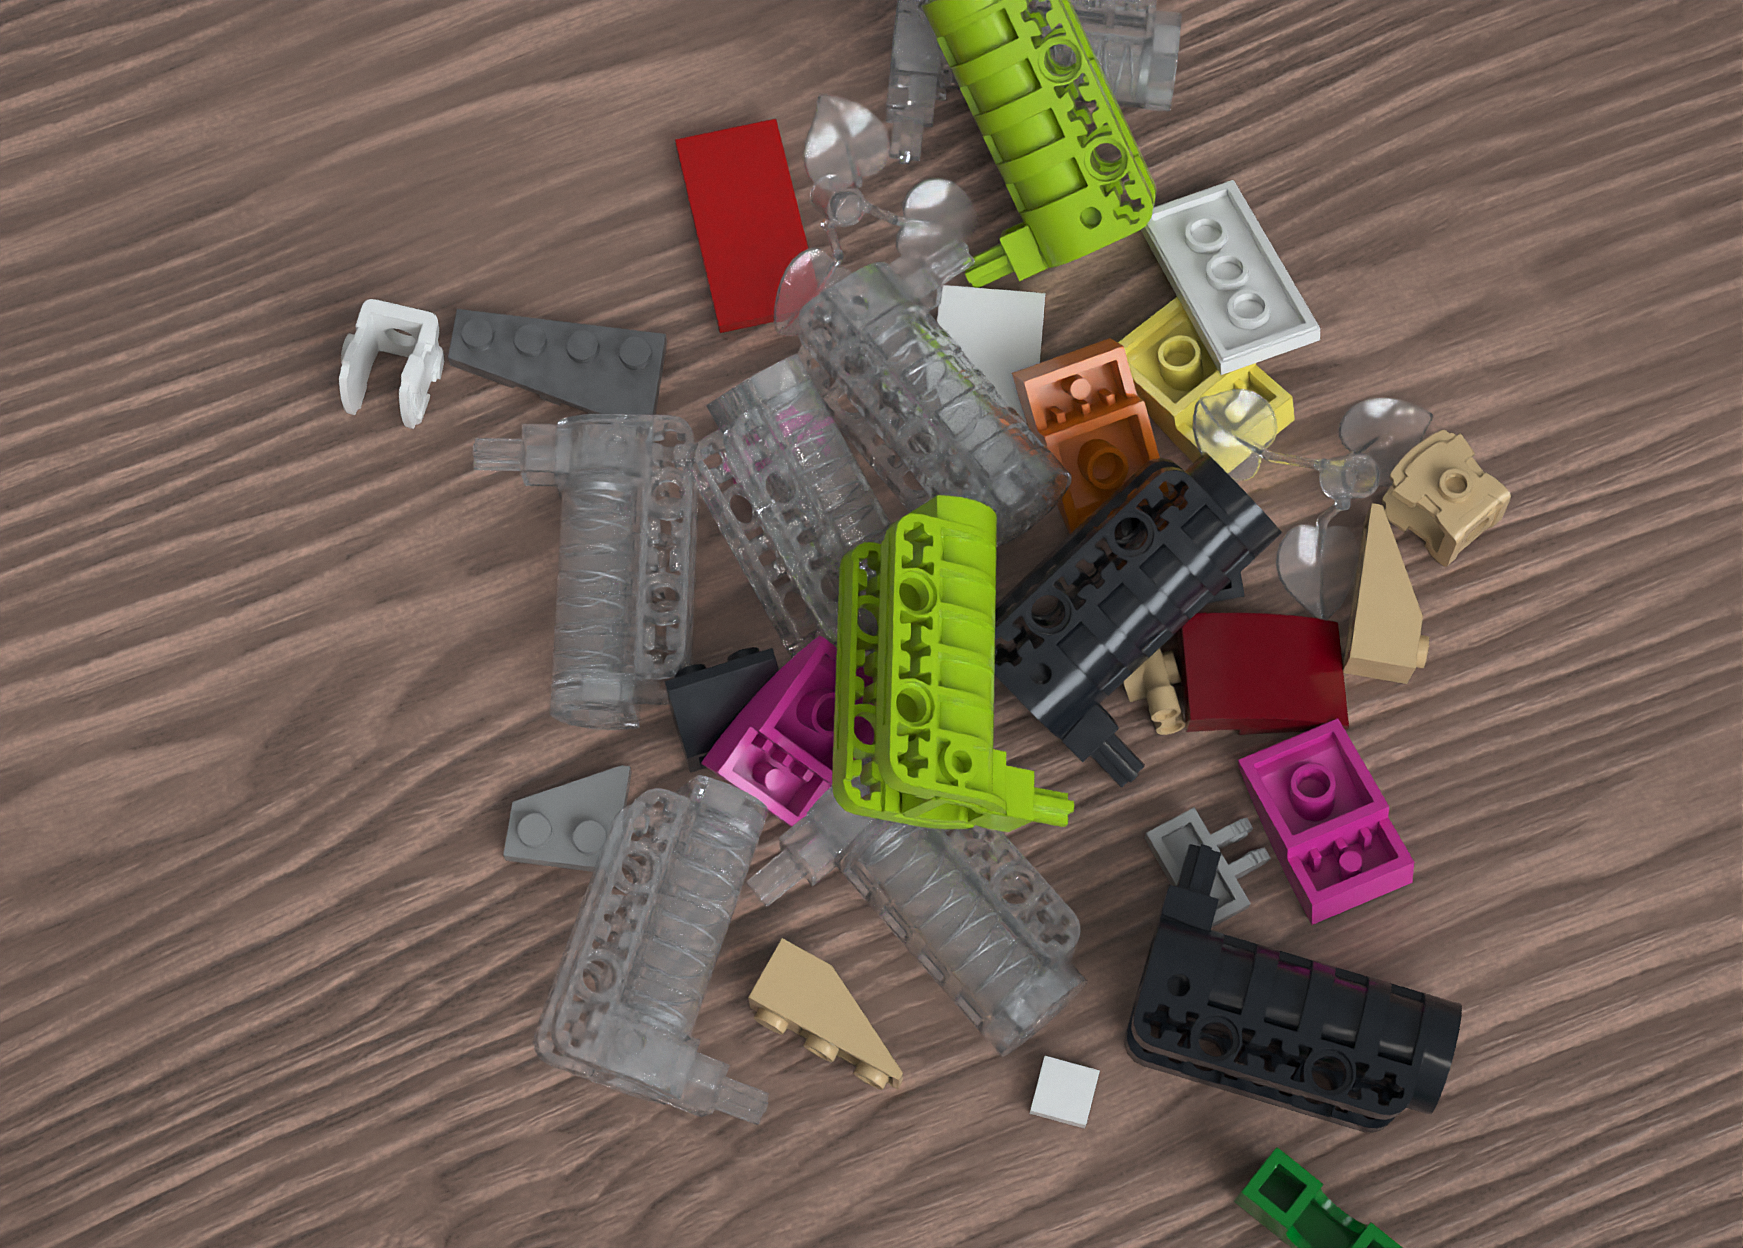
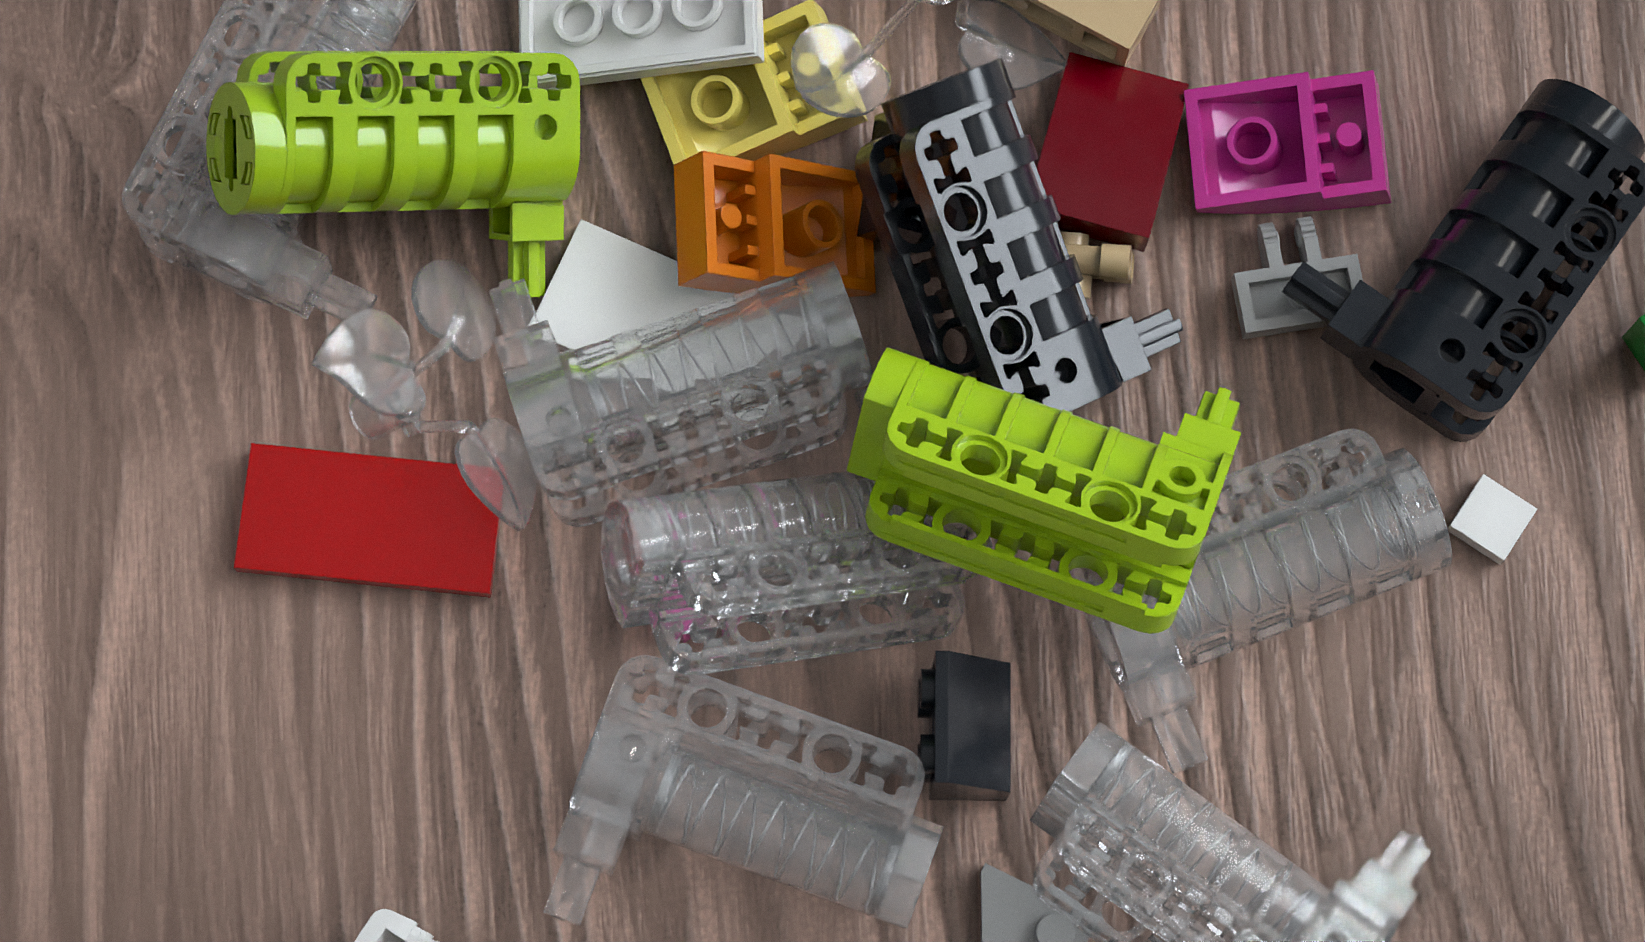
camera: 75 degrees left, 5 degrees up
(563, 361) = (477, 769): flat silver wing -> none
(785, 735) = (1031, 667): dark pink slope -> none
(812, 1001) = (1322, 743): tan slope -> none

